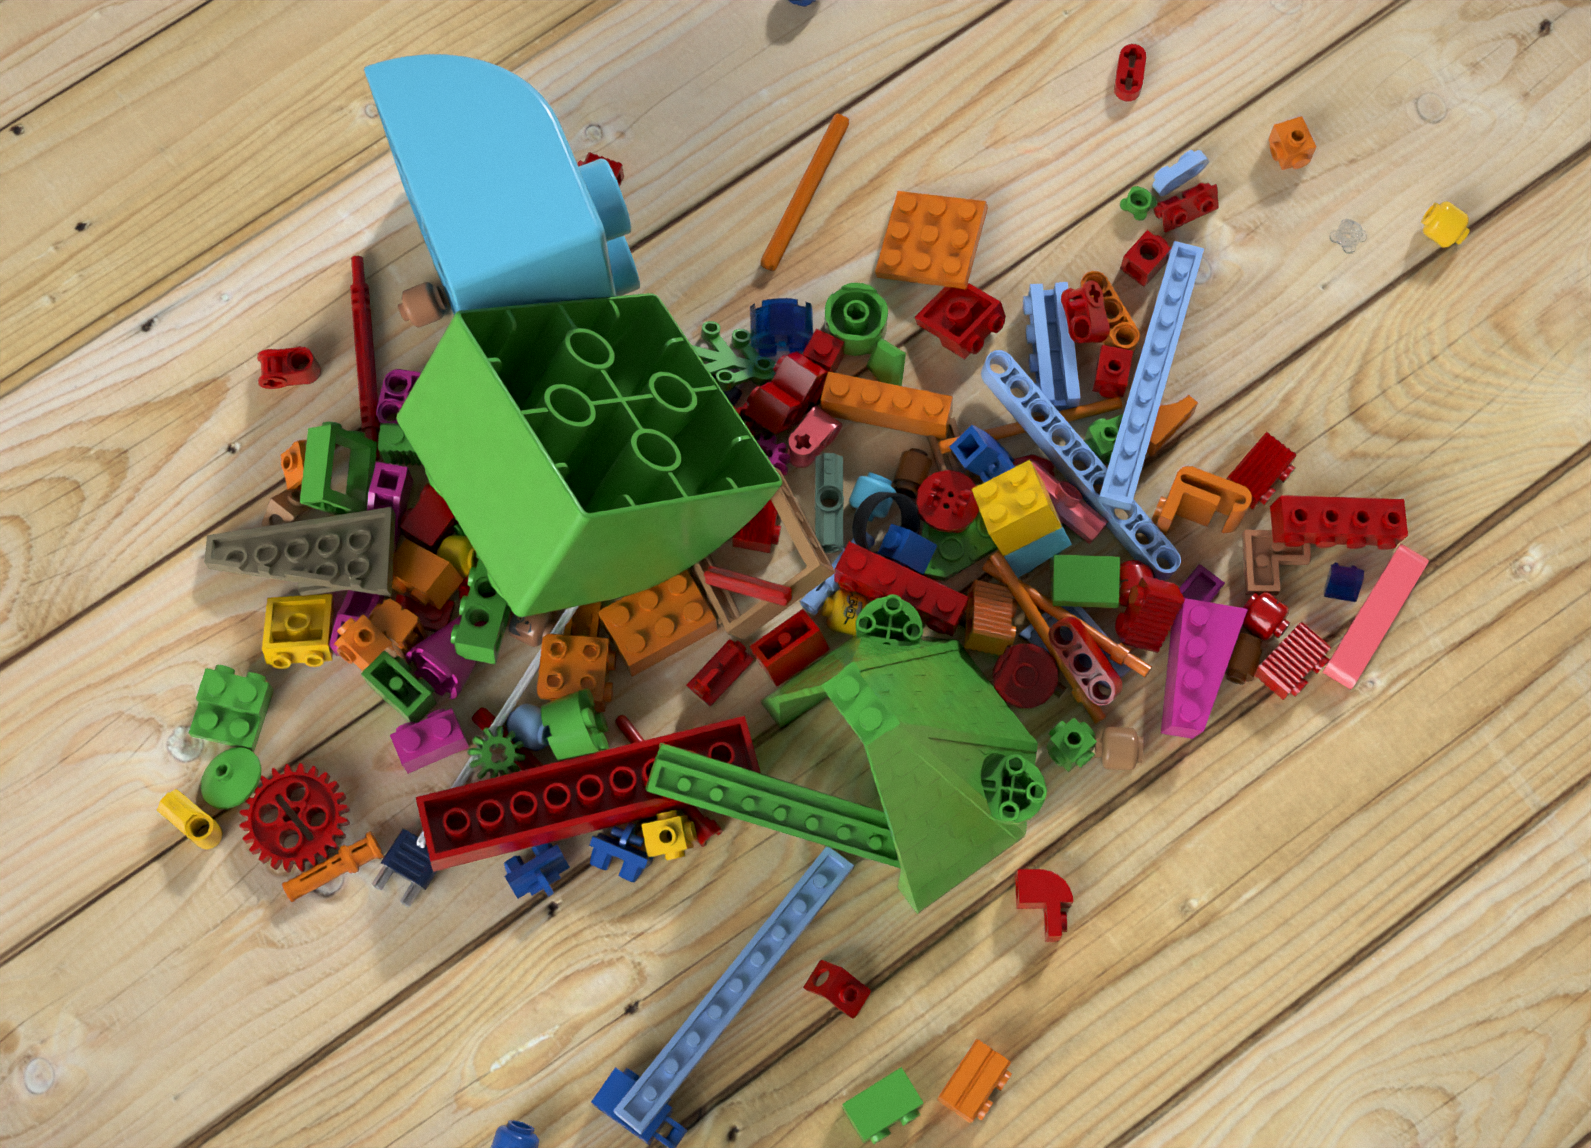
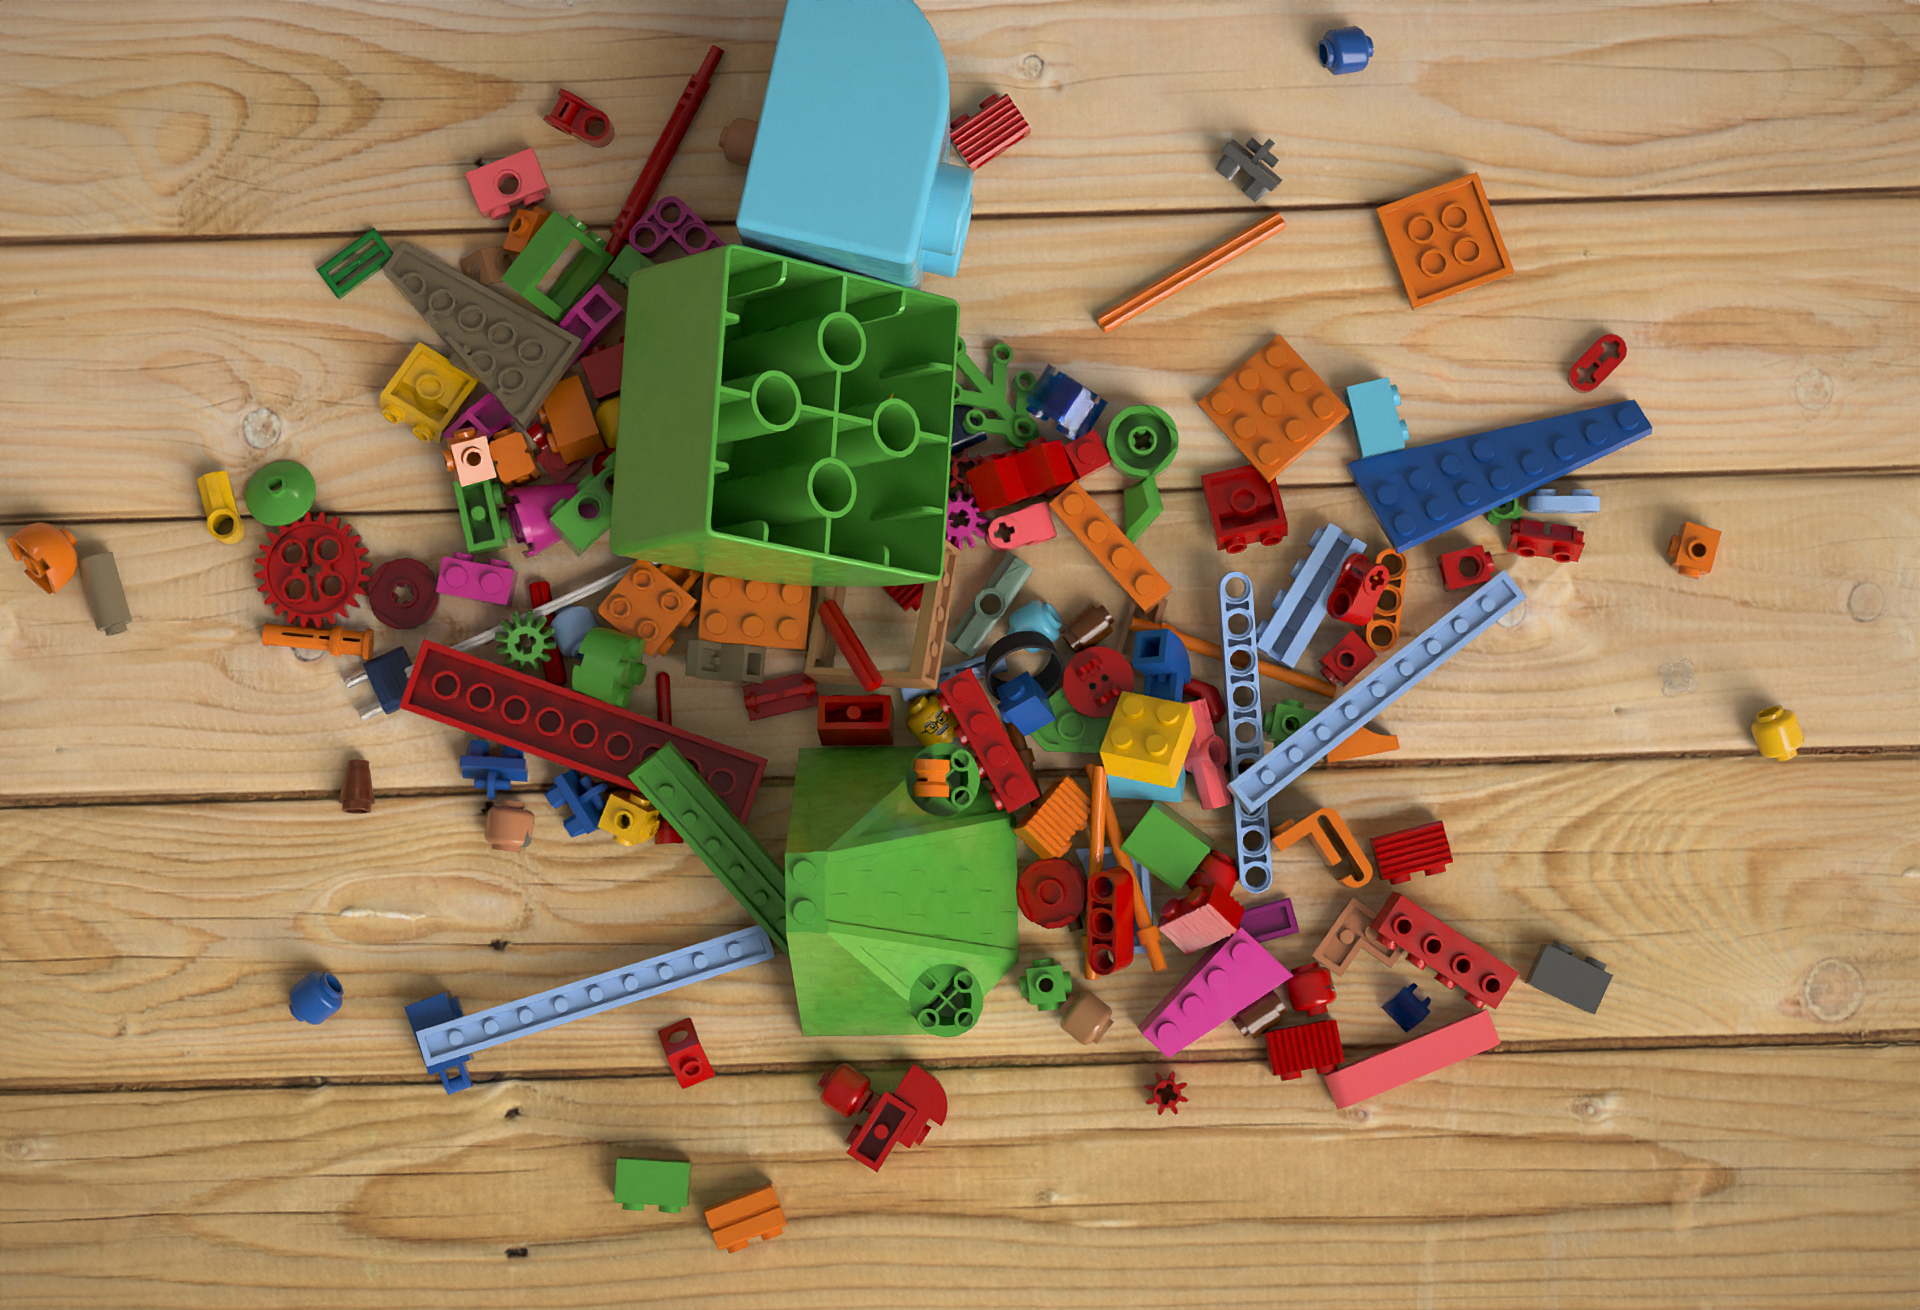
camera: 35 degrees right, 15 degrees up
(68, 946) = (46, 553): none -> orange cylinder
(137, 945) = (105, 593): none -> dark tan brick
(172, 601) = (332, 282): none -> green tile
(231, 707) = (321, 425): bright green plate -> none
(262, 427) = (487, 180): none -> coral brick
(364, 776) = (384, 599): none -> dark red plate
(439, 961) = (357, 788): none -> copper cone
(579, 906) = (509, 826): none -> nougat head
(662, 672) = (725, 662): none -> dark tan brick
(809, 98) = (1238, 157): none -> dark grey hips
(880, 625) = (931, 778): none -> orange wheel
(965, 60) = (1444, 241): none -> orange plate
(980, 928) = (845, 1090): none -> red head
(1008, 201) = (1376, 418): none -> medium azure brick
(1030, 938) = (880, 1131): none -> red brick
(1094, 206) = (1455, 480): none -> blue wing
(1216, 771) = (1161, 1083): none -> red gear
(1439, 482) = (1568, 977): none -> dark grey brick

